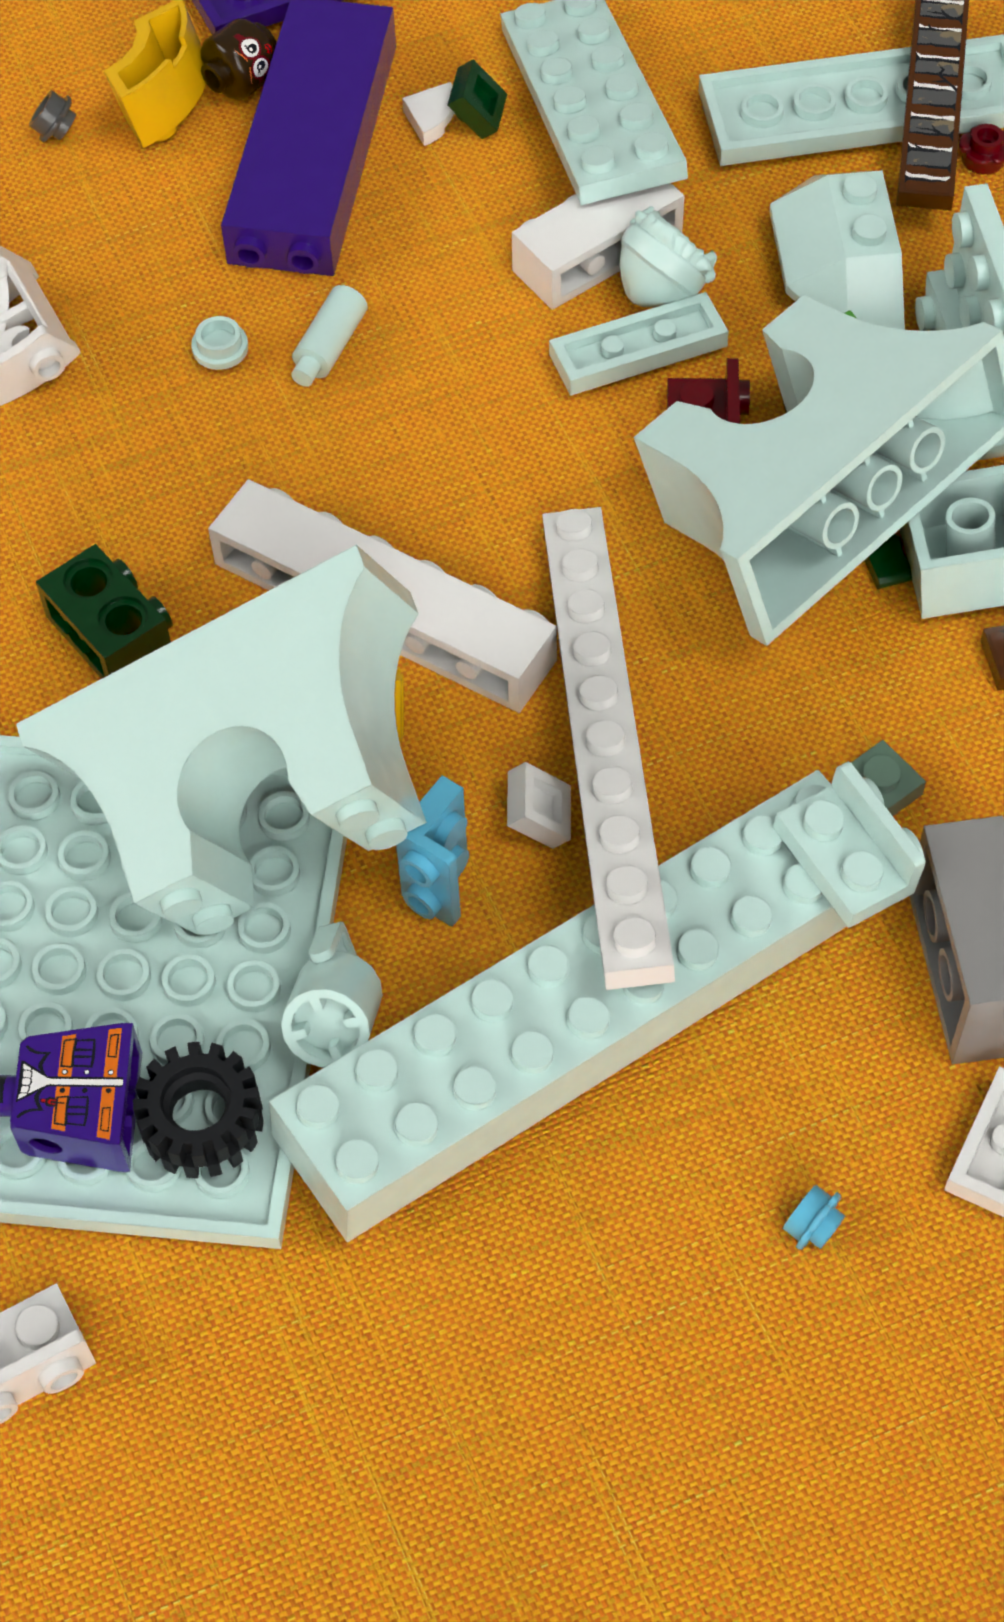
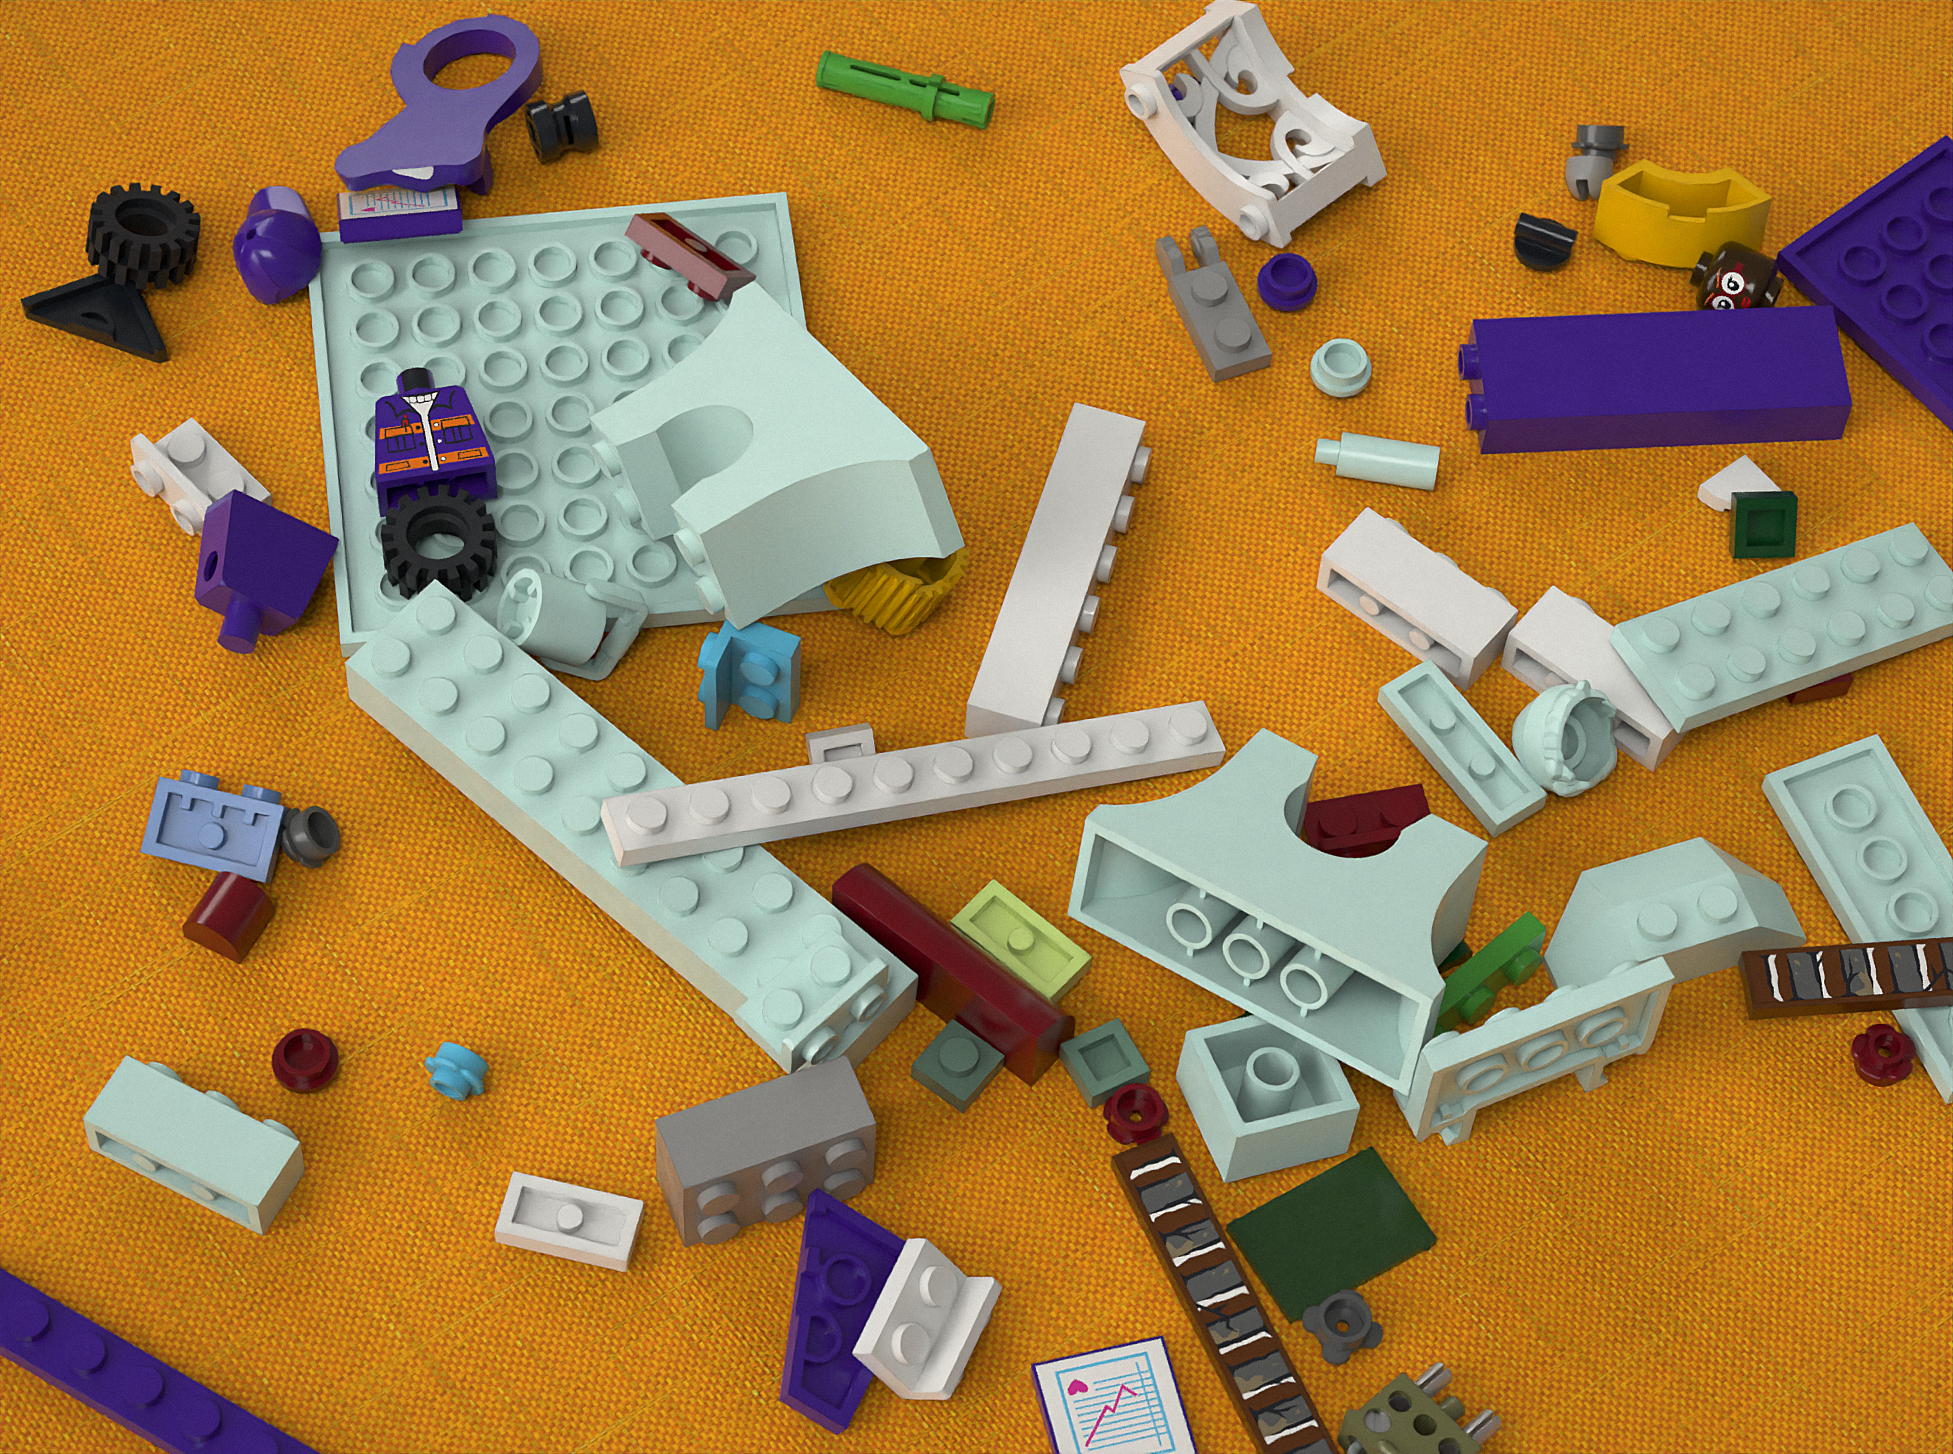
camera: 70 degrees right, 0 degrees up
(80, 132) = (1586, 175): none -> light grey hinge
(99, 603) = (953, 347): dark green brick -> none
(113, 361) = (1287, 282): none -> dark purple plate
(113, 424) = (1213, 308): none -> light grey hinge
(142, 177) = (1543, 243): none -> black plate
(167, 1303) = (257, 568): none -> dark purple torso
(469, 1407) = (215, 828): none -> medium blue bracket
(481, 338) = (1416, 597): none -> white brick
(504, 1314) = (309, 836): none -> dark grey plate
(579, 1419) = (229, 916): none -> dark red brick
(767, 704) = (1023, 941): none -> yellowish green plate
(772, 1368) = (305, 1061): none -> dark red plate
(819, 738) = (956, 974): none -> dark red brick
(860, 1493) = (195, 1143): none -> light aqua brick
(904, 664) = (1103, 1062): none -> sand green plate
(960, 641) = (1135, 1099): none -> dark red plate

